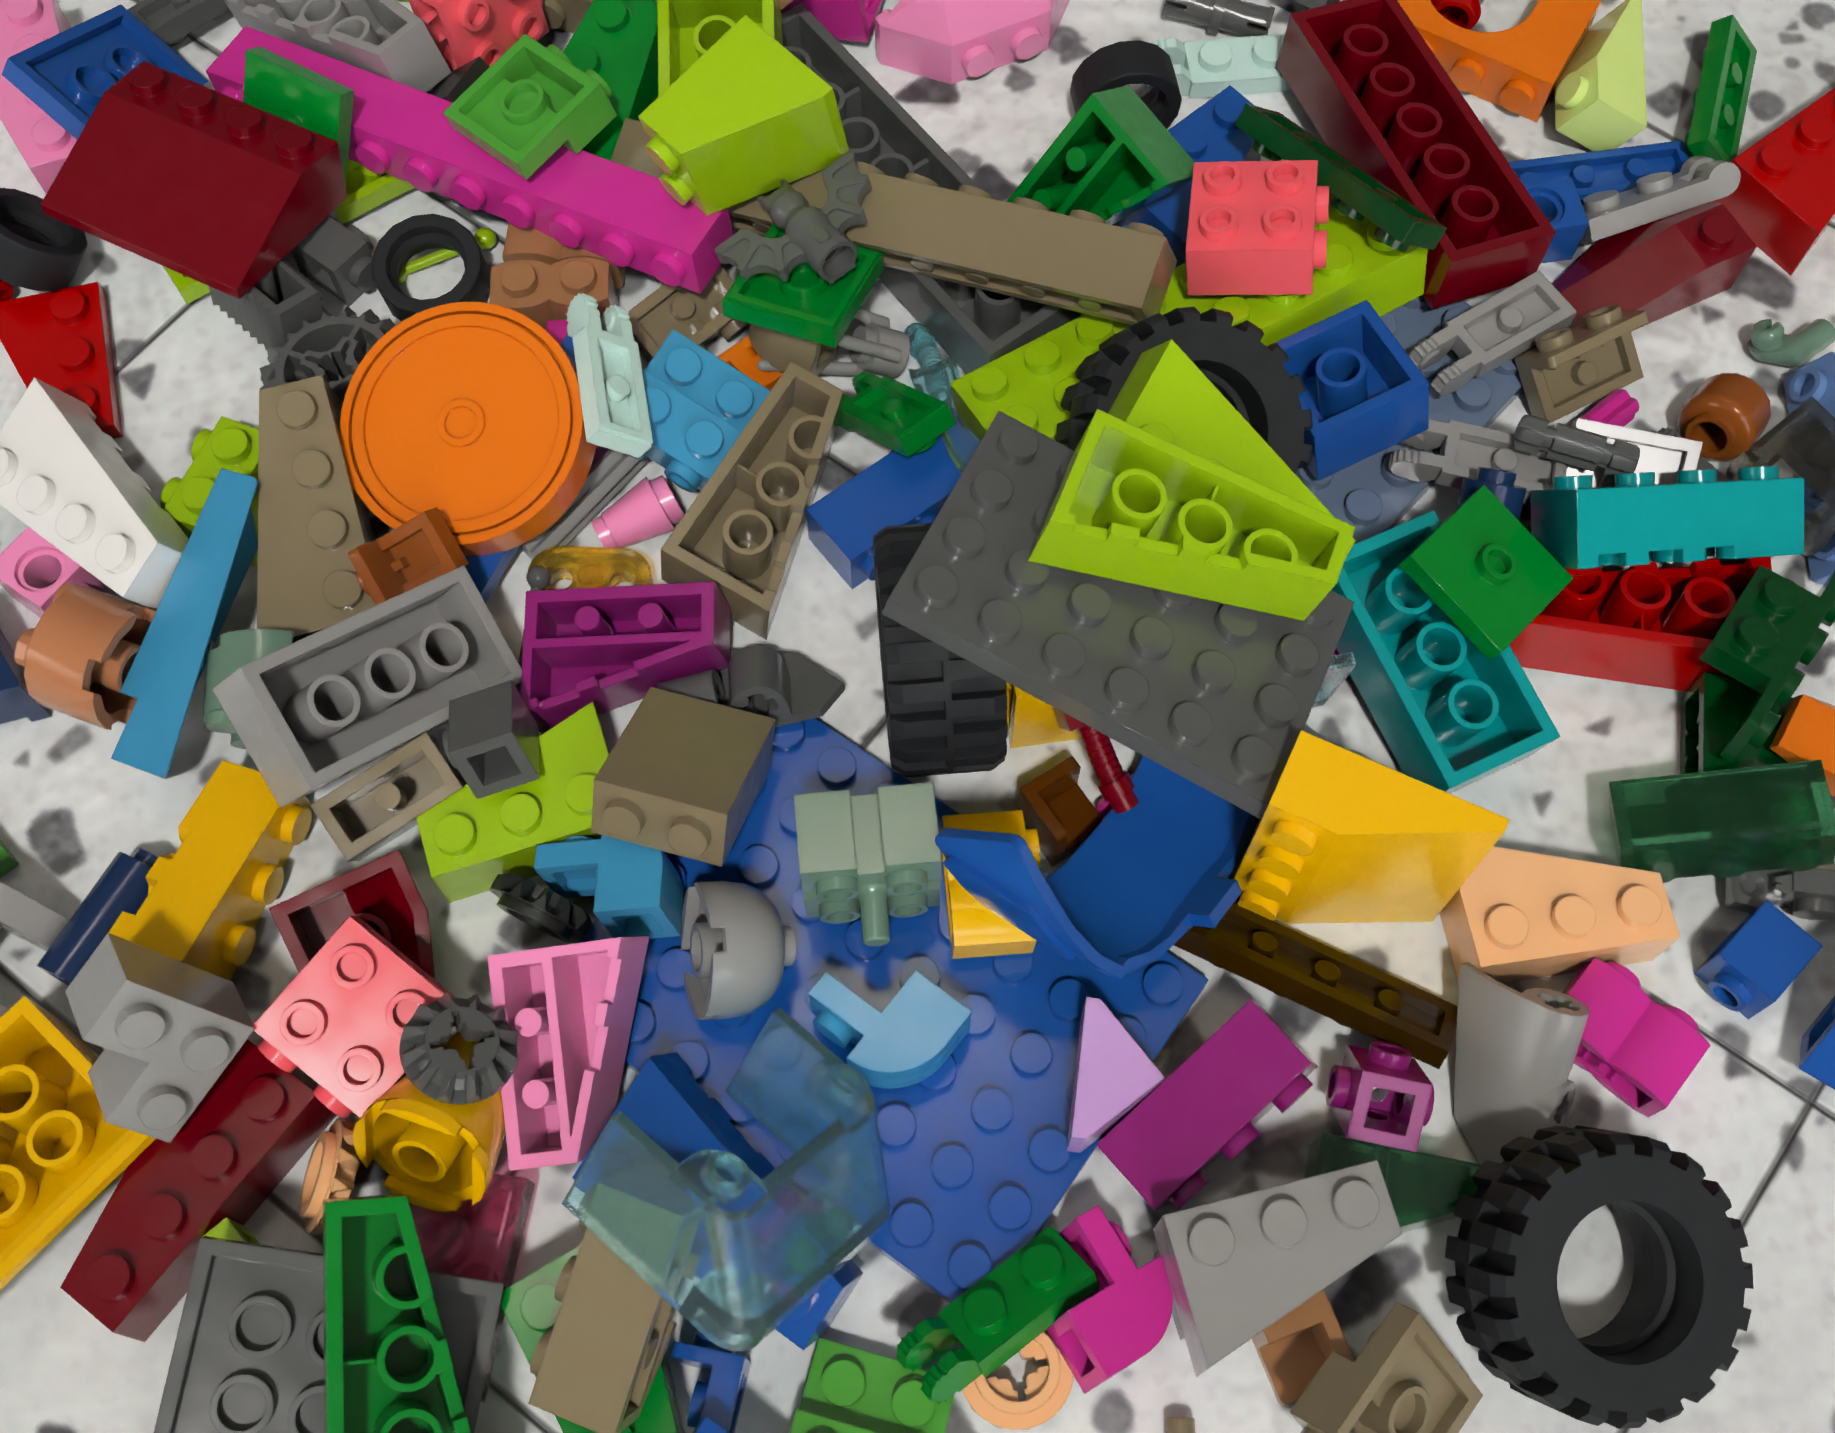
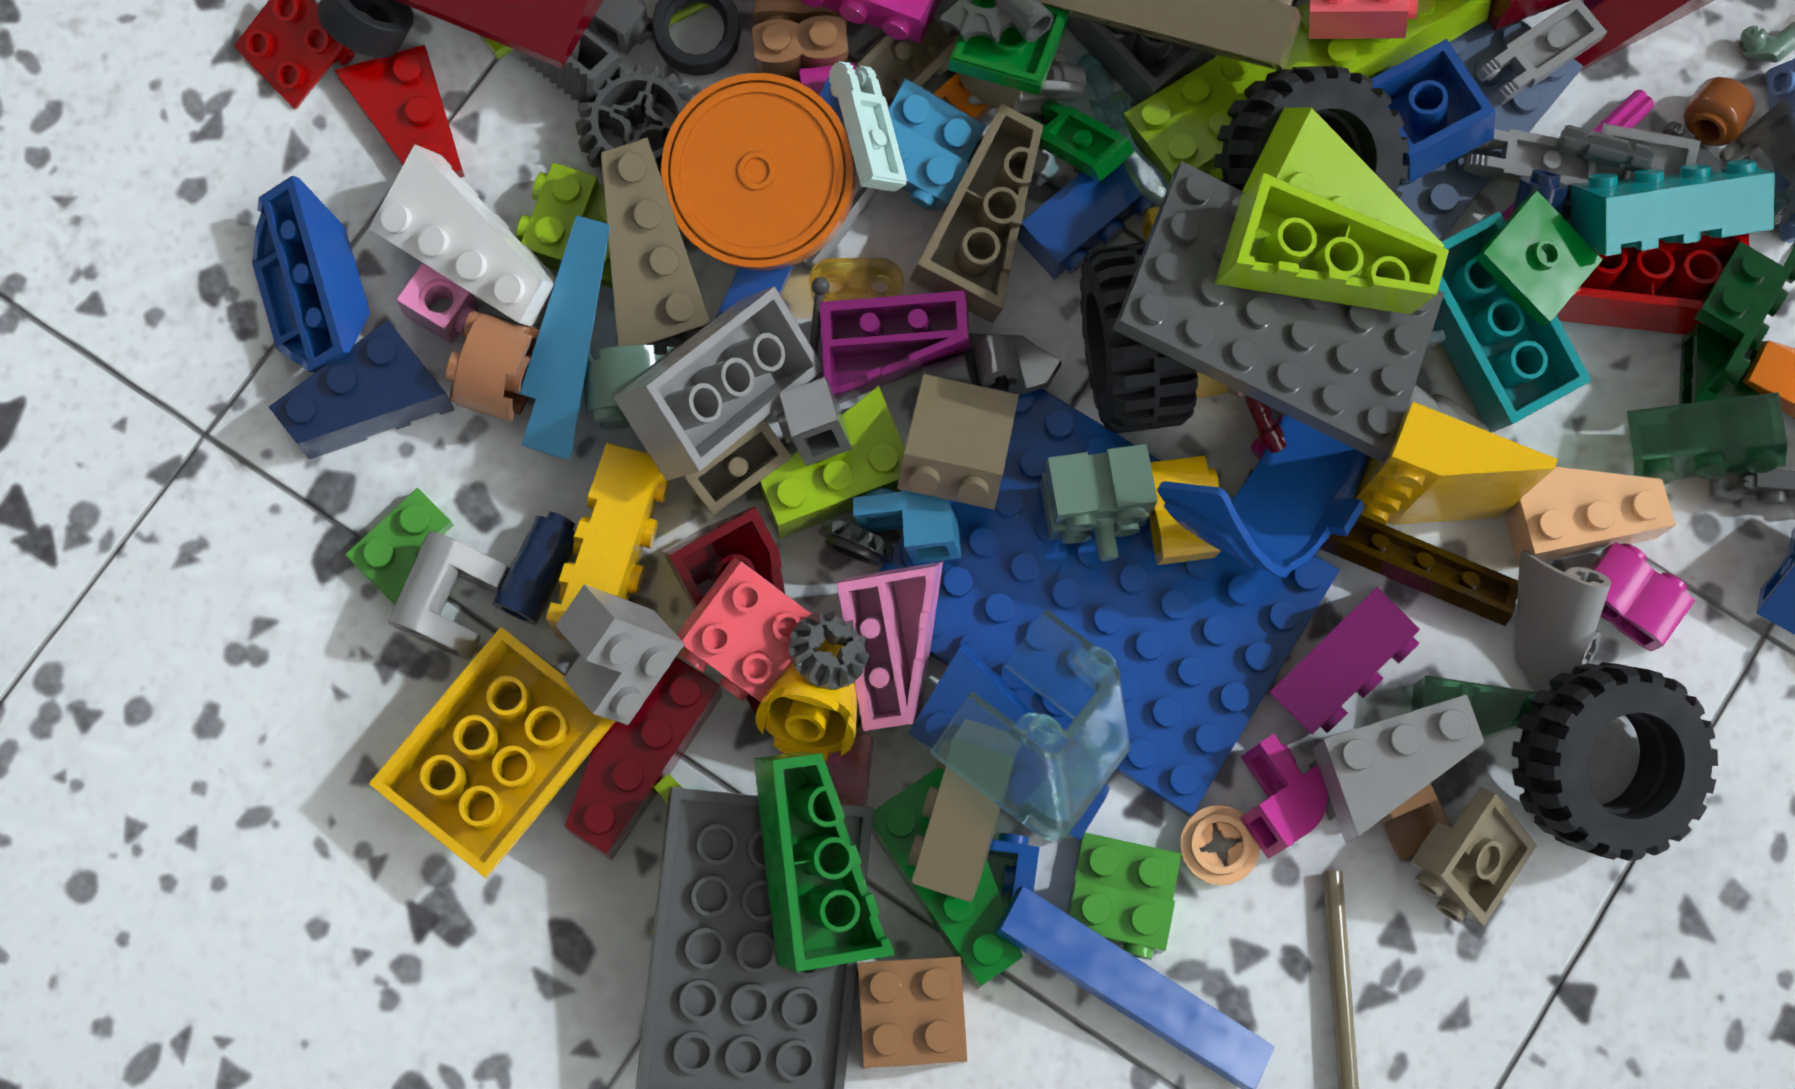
camera: 10 degrees left, 10 degrees up
(328, 1173) = (733, 741): light nougat gear -> none
(407, 557) = (730, 282): dark orange bracket -> none
(639, 514) = (887, 228): bright pink cone -> none
(734, 949) = (1004, 566): light grey cylinder -> none
(900, 1043) = (1122, 630): dark azure brick -> none
(998, 1315) = (1209, 809): green hinge -> none
(1058, 811) = (1227, 450): reddish brown panel -> none
(1108, 1077) = (1274, 643): lavender slope -> none
(1392, 1113) = (1465, 647): magenta brick -> none
(1581, 363) = (1609, 71): dark tan bracket -> none
(1757, 961) = (1730, 537): blue brick -> none

